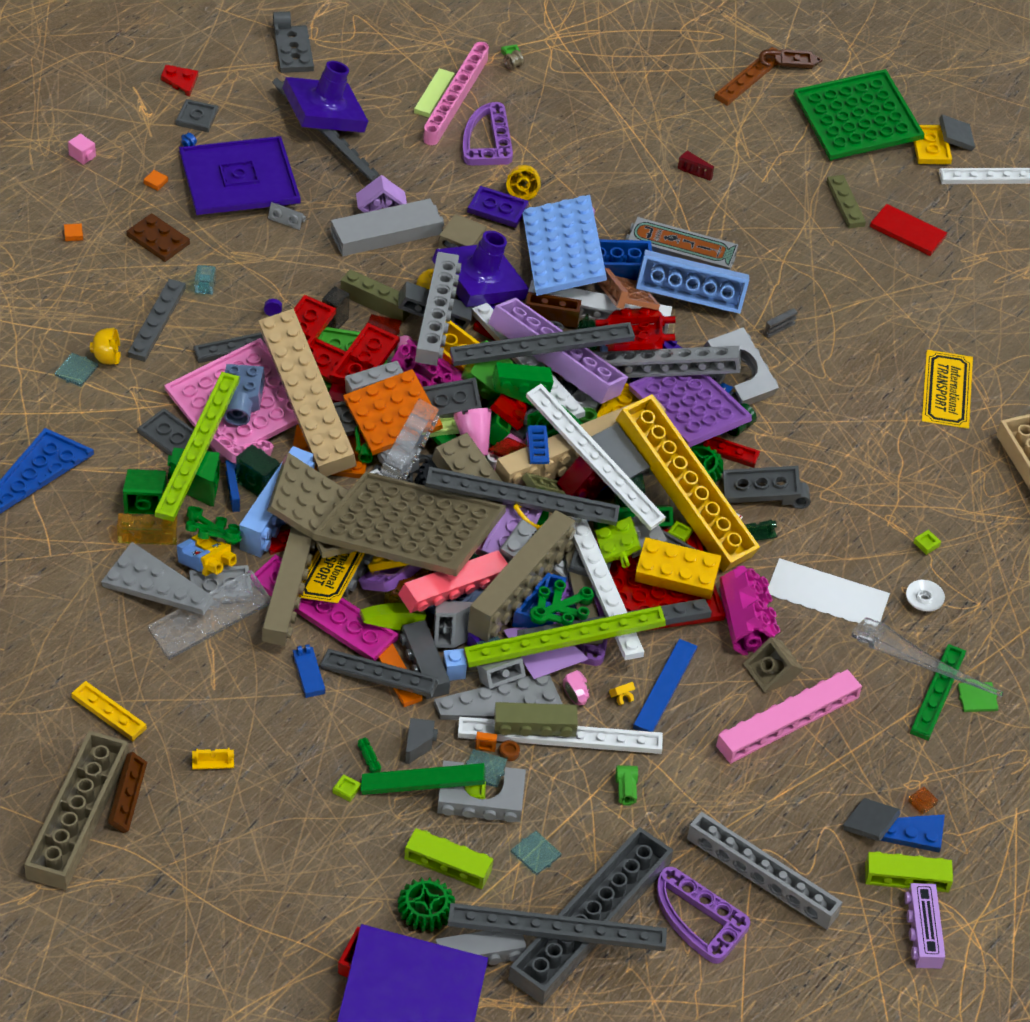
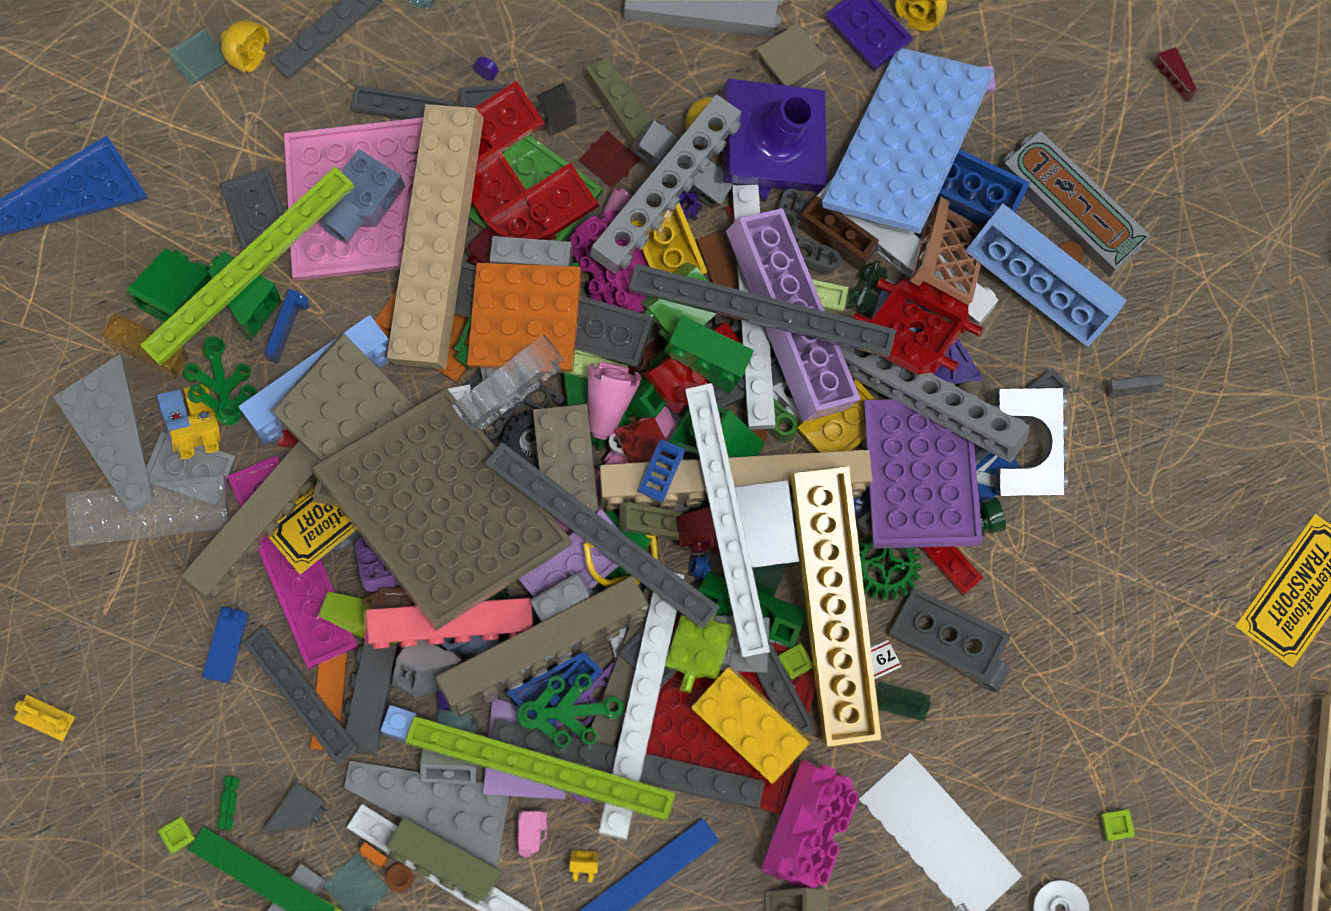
camera: 30 degrees right, 25 degrees up
(231, 450) = (309, 278): bright pink beam -> none
(255, 469) = (317, 319): clear green brick -> none

